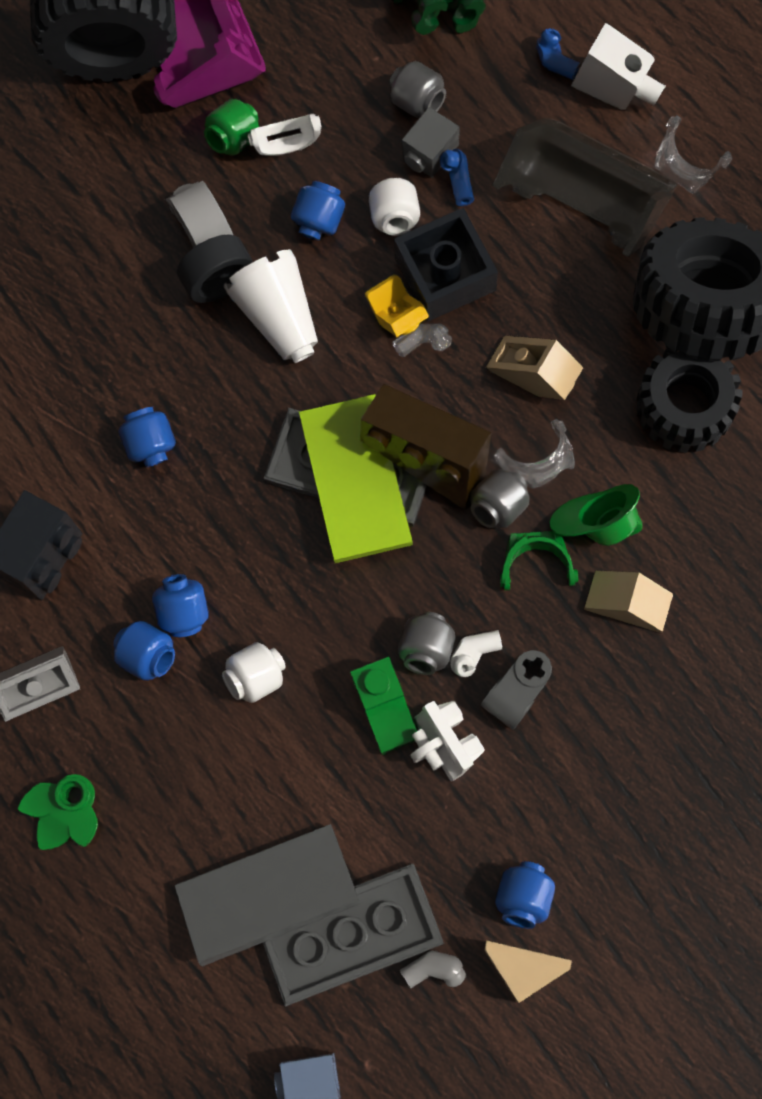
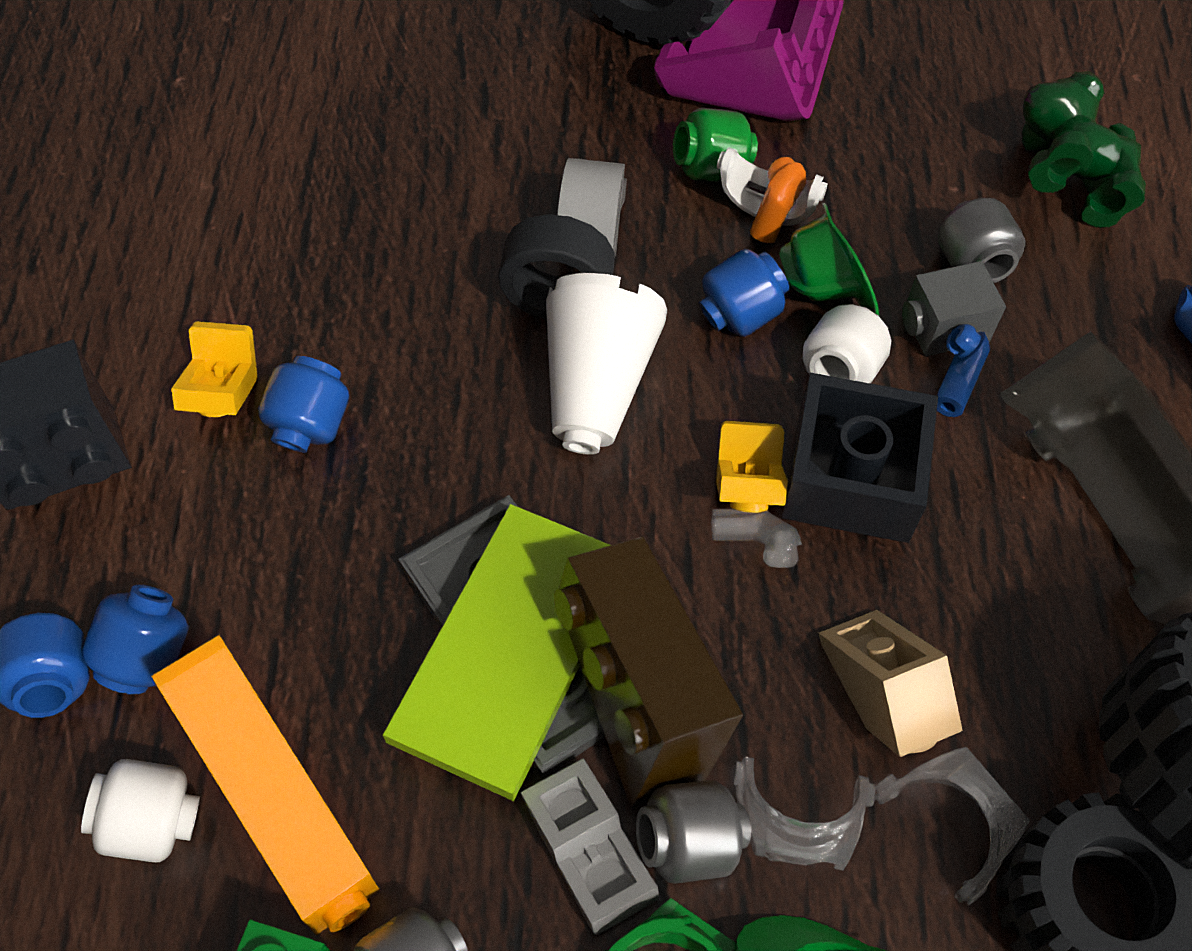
camera: 30 degrees right, 15 degrees down
(84, 452) = (219, 371): none -> yellow bracket
(293, 127) = (785, 185): none -> orange arm
(304, 618) = (267, 787): none -> light orange slope
(347, 166) = (824, 264): none -> green piece
(458, 539) = (590, 847): none -> light grey slope
(600, 386) = (968, 775): none -> clear helmet

